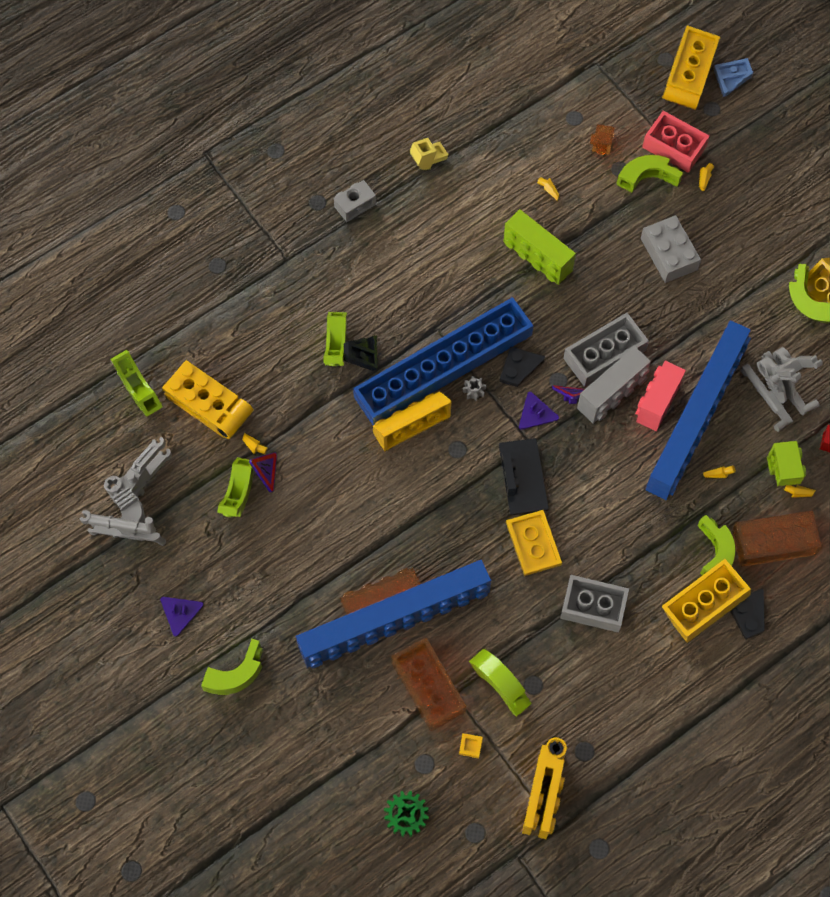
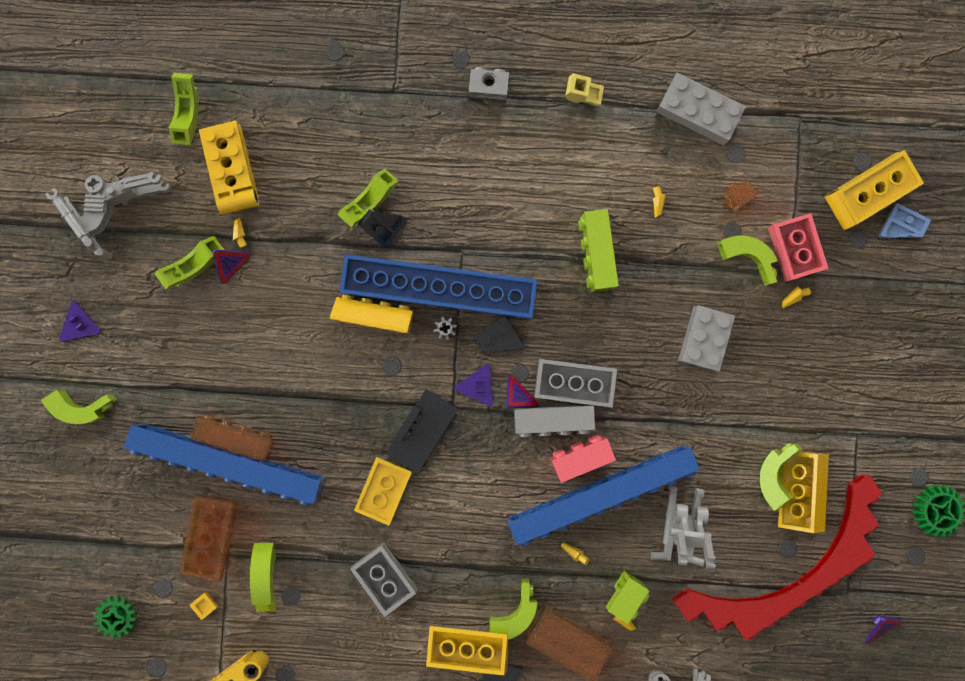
camera: 40 degrees right, 20 degrees up
(522, 106) = (700, 109): none -> light grey brick

